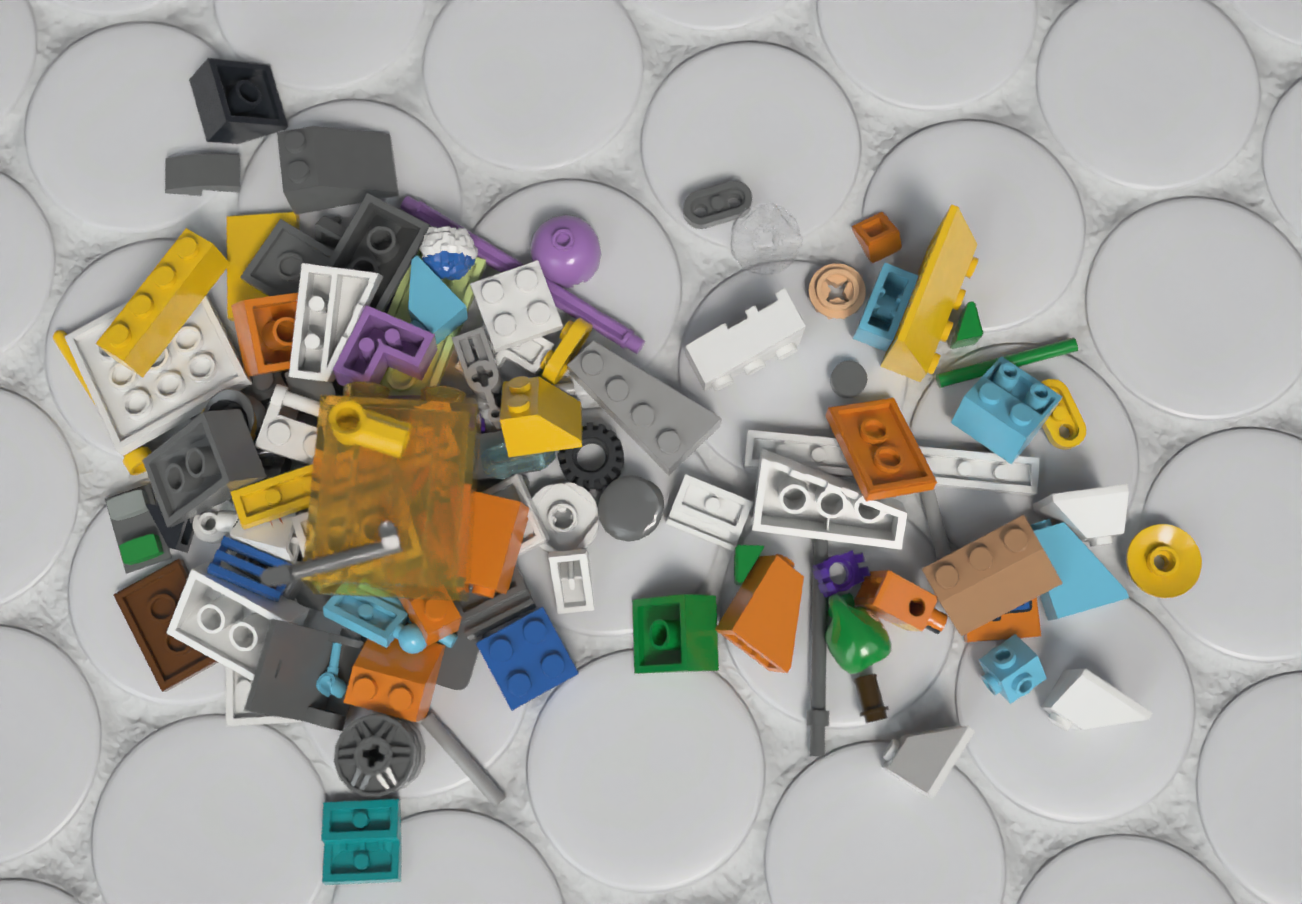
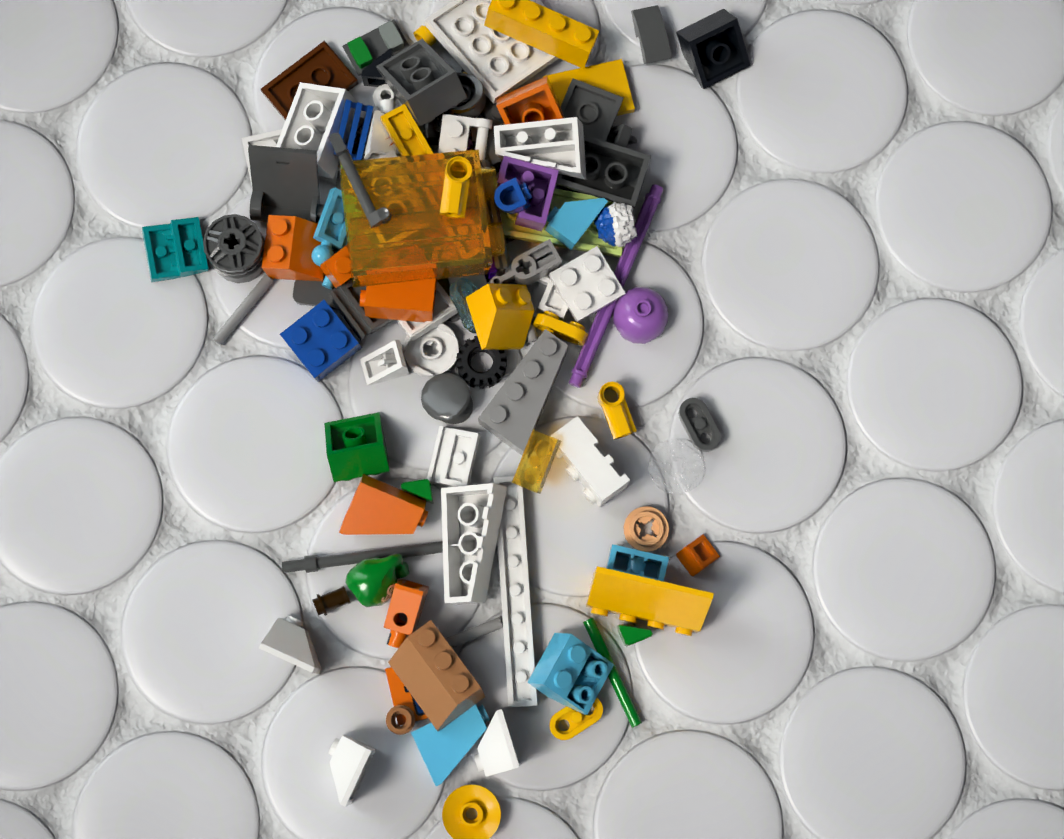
camera: 75 degrees right, 0 degrees up
(329, 682) = (282, 203): medium azure hand -> none
(335, 167) = (673, 130): dark grey slope -> none
(392, 364) = (513, 196): none -> blue plate
(687, 300) = (616, 413): none -> yellow piece
(736, 405) = (536, 461): none -> clear yellow plate
(848, 379) = (577, 549): dark grey tile -> none
(853, 573) = (433, 570): dark purple piece -> none
(880, 449) = (521, 577): orange tile -> none
(1012, 669) = (367, 703): medium azure brick -> none
(1048, 630) = (393, 726): none -> medium nougat plate

